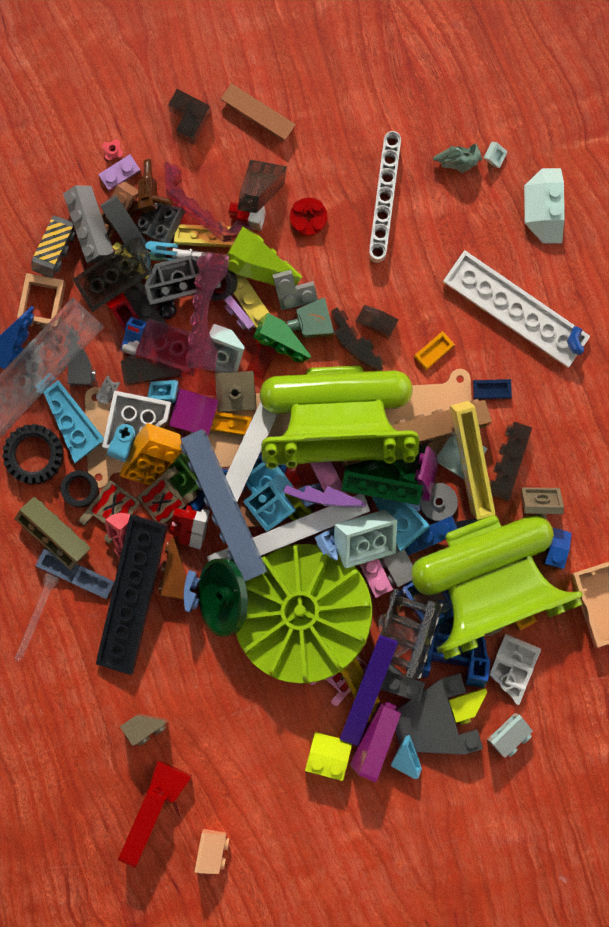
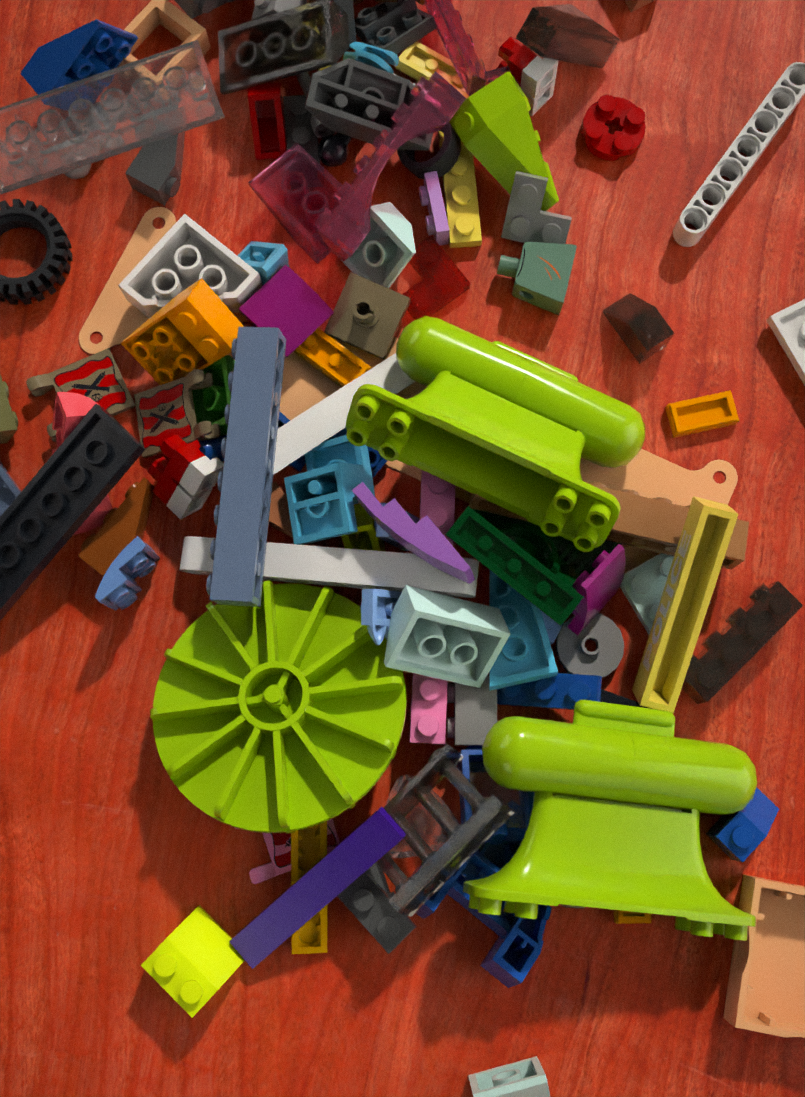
camera: 30 degrees right, 5 degrees down
(65, 486) = (39, 320): black tyre -> none
(75, 426) = (103, 237): medium azure wing -> none
(107, 390) = (185, 206): light grey piece -> none
(119, 446) = (145, 292): medium azure piece -> none
(133, 336) = (263, 151): blue leg -> none
(142, 371) = (246, 217): clear smoke slope -> none
(222, 597) = (167, 609): dark green dish -> none
(277, 334) = (477, 267): green slope -> none
(294, 475) = (388, 485): clear red cone -> none
(359, 349) = (586, 345): clear smoke slope -> none
(376, 741) = (280, 983): magenta slope -> none
(407, 759) = (318, 1039): medium azure slope -> none
(432, 721) = (389, 1000): dark grey wedge -> none
(466, 705) = (465, 1001): neon yellow slope -> none
(492, 389) = (765, 517): dark blue tile -> none
(514, 666) = (576, 978): white slope -> none
(542, 501) = (760, 732): dark tan tile -> none

